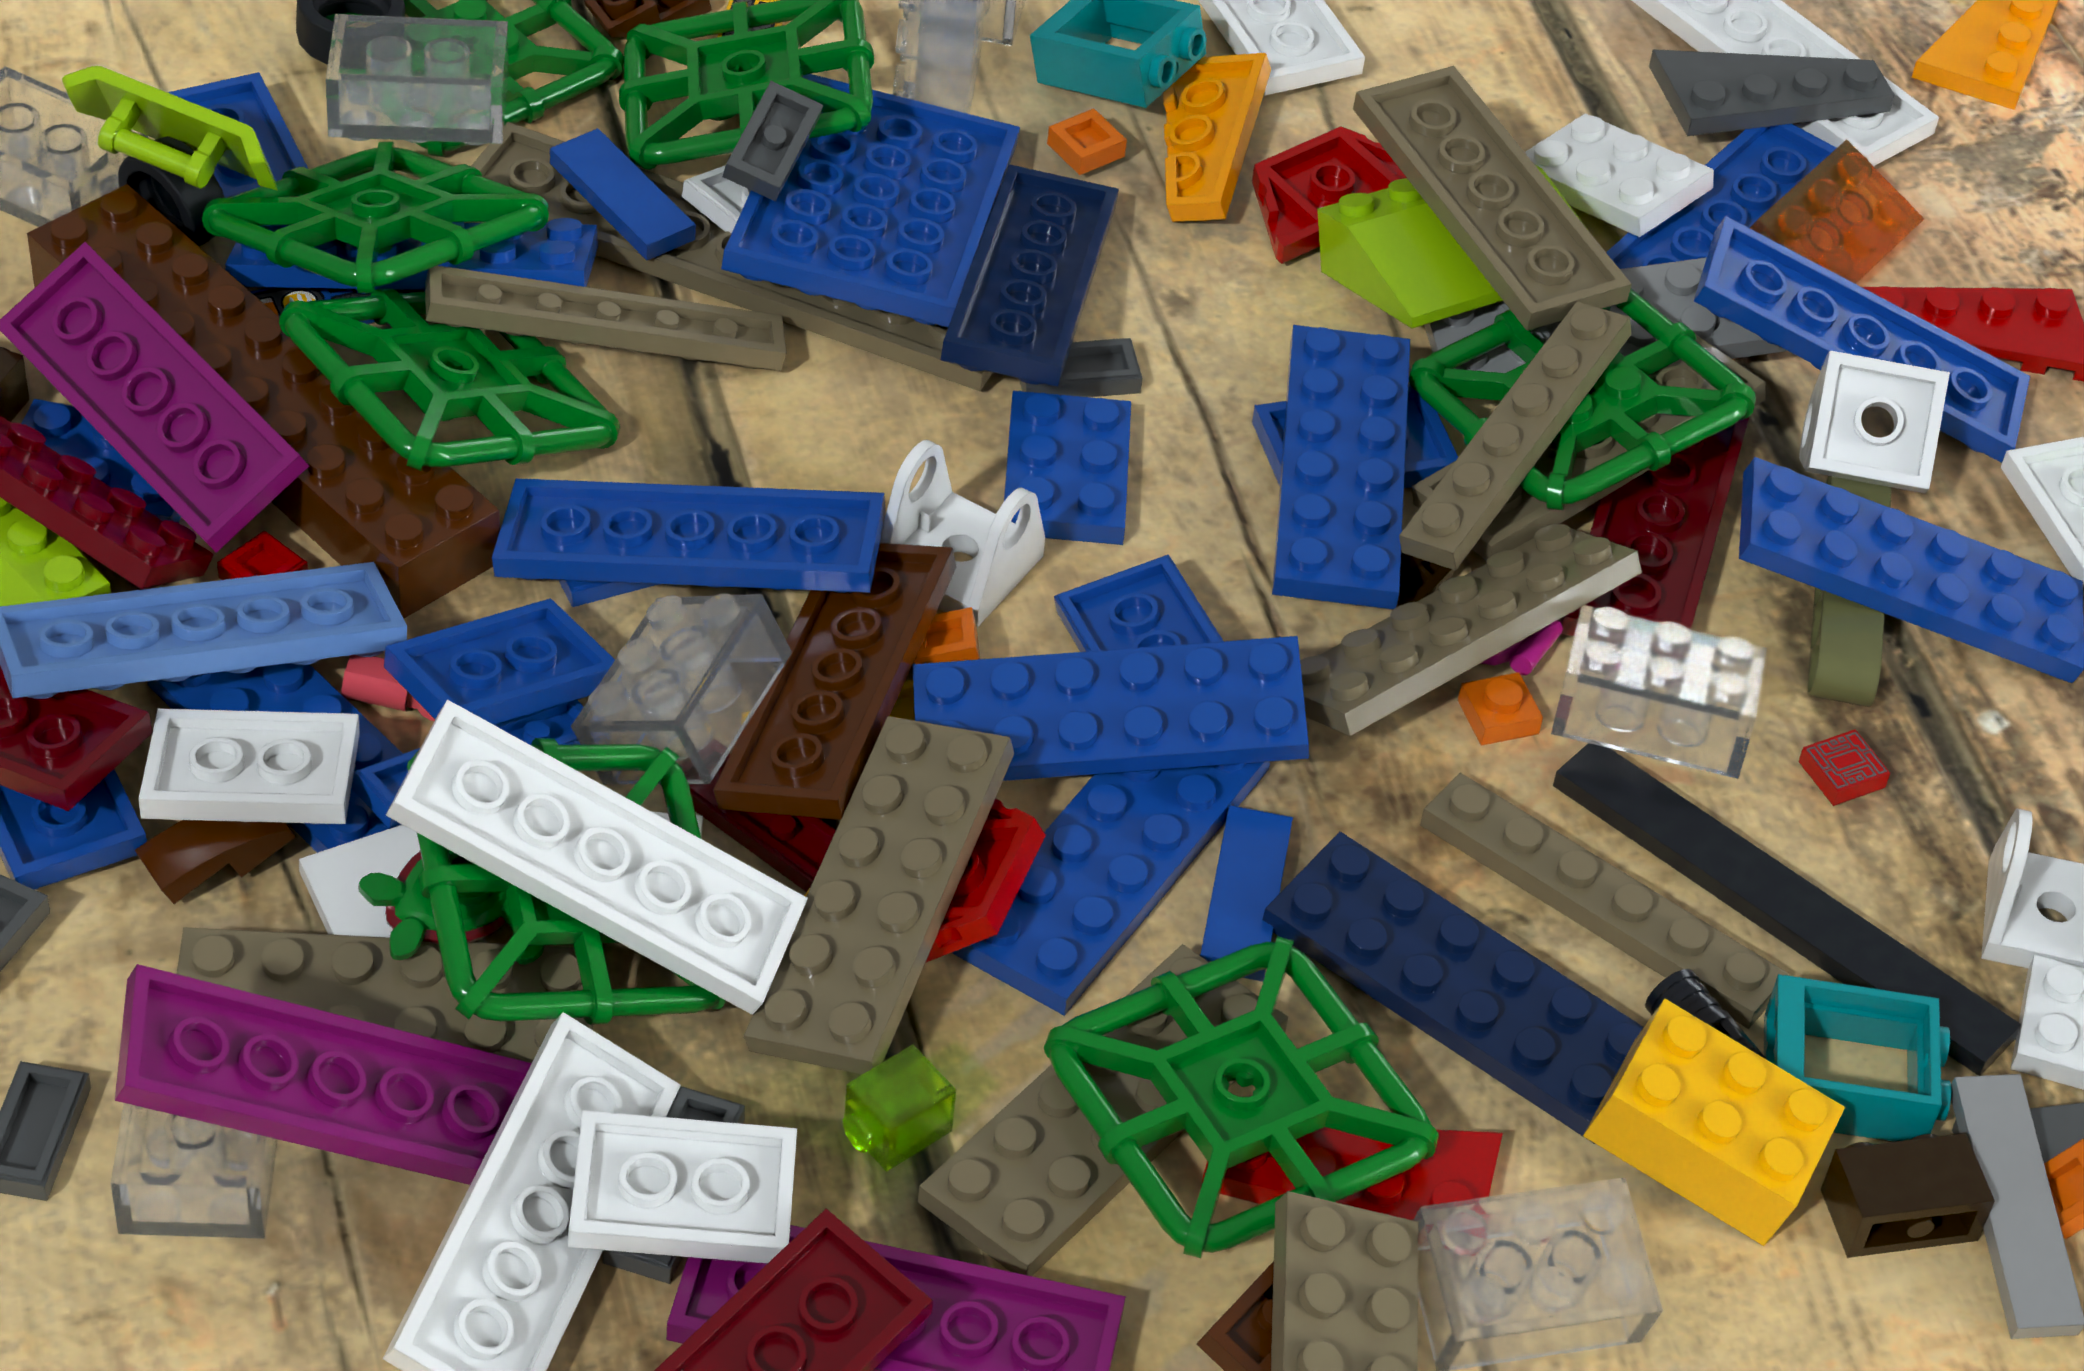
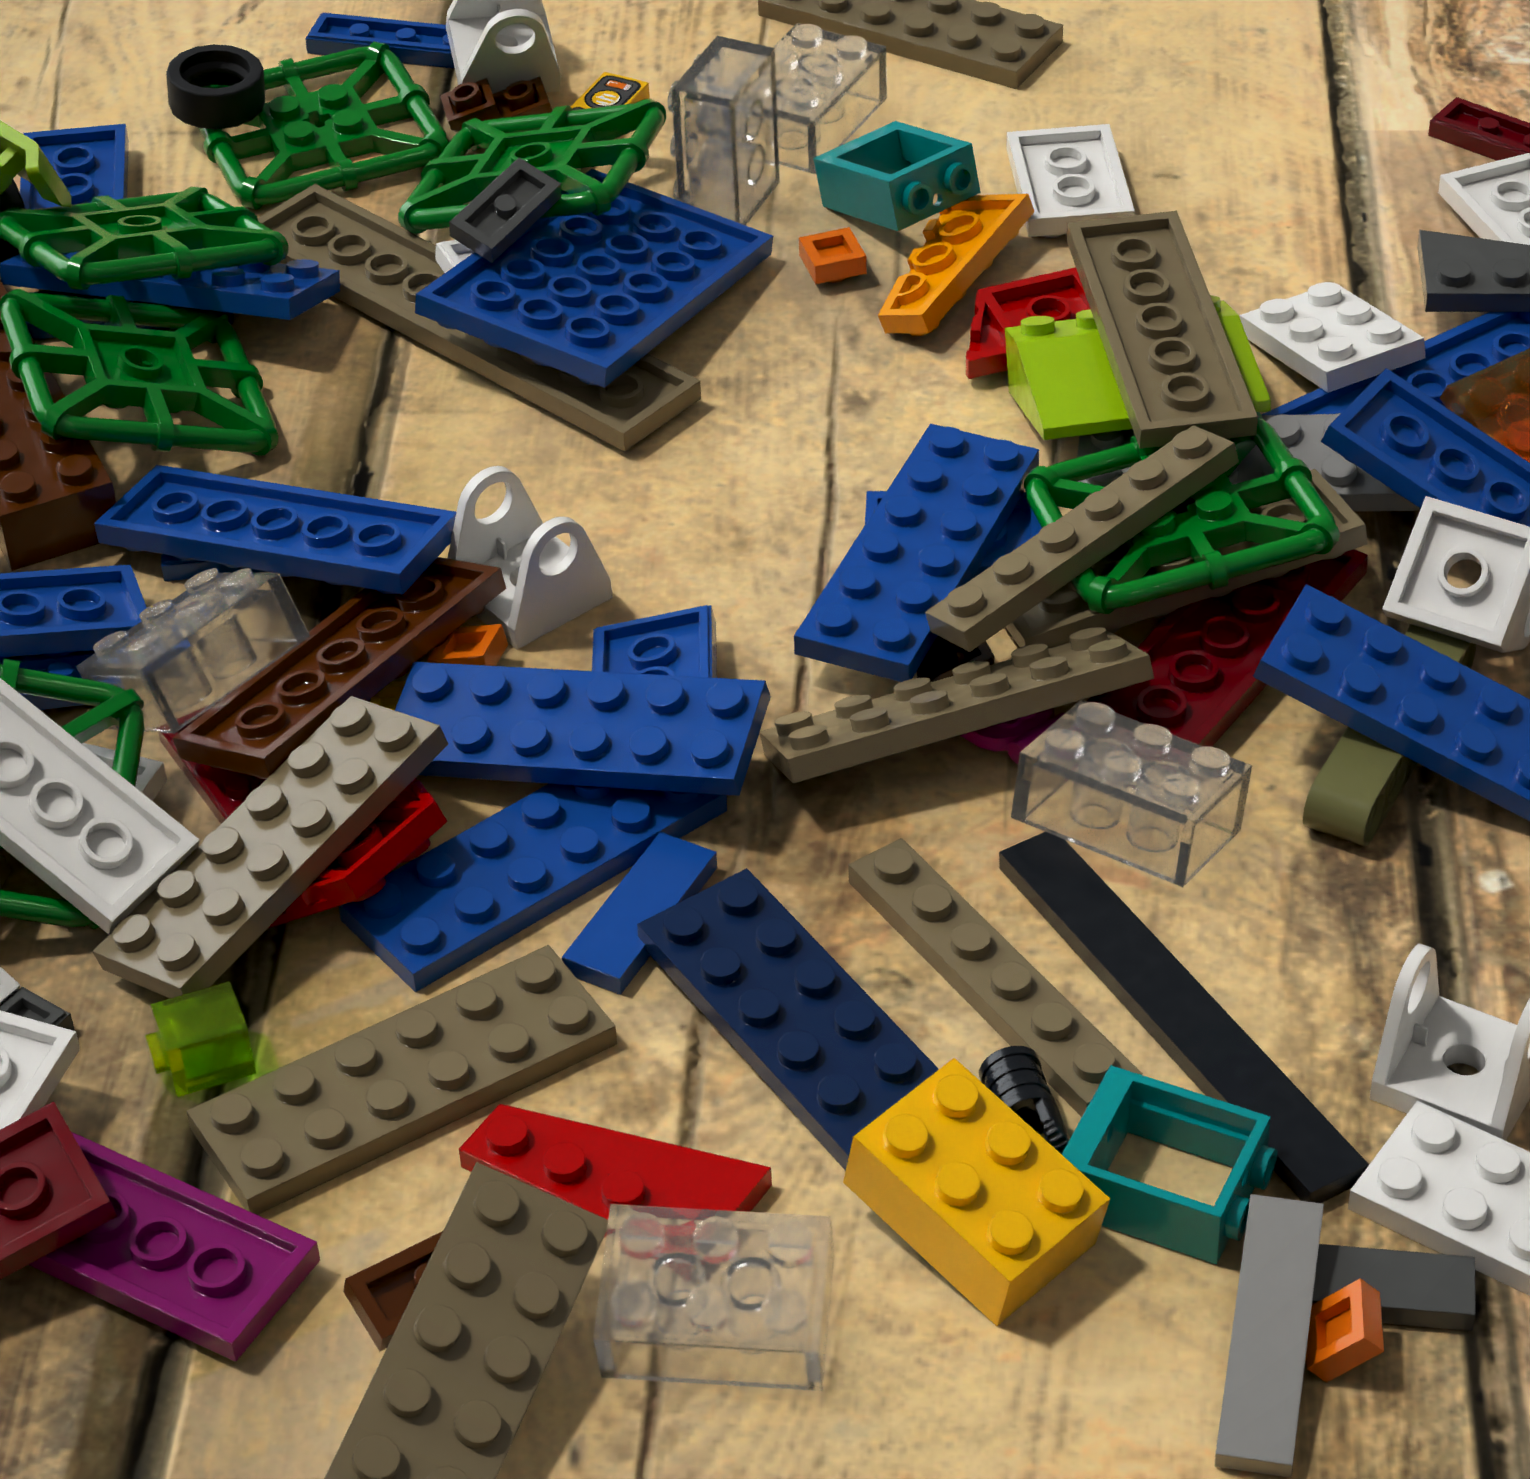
camera: 25 degrees right, 5 degrees down
(417, 79) = (236, 135): clear brick -> none
(604, 318) = (300, 344): dark tan plate -> none
(622, 194) = (376, 249): blue tile -> none
(1030, 276) = (704, 355): dark blue plate -> none
(1074, 461) = (672, 523): blue plate -> none
(1096, 370) = (725, 444): dark grey tile -> none
(1234, 1128) = (548, 1099): green plate -> none
(1500, 708) = (978, 790): orange plate -> none
(1844, 767) = (1306, 896): red tile -> none
(1906, 1194) = (1157, 1301): dark brown brick -> none

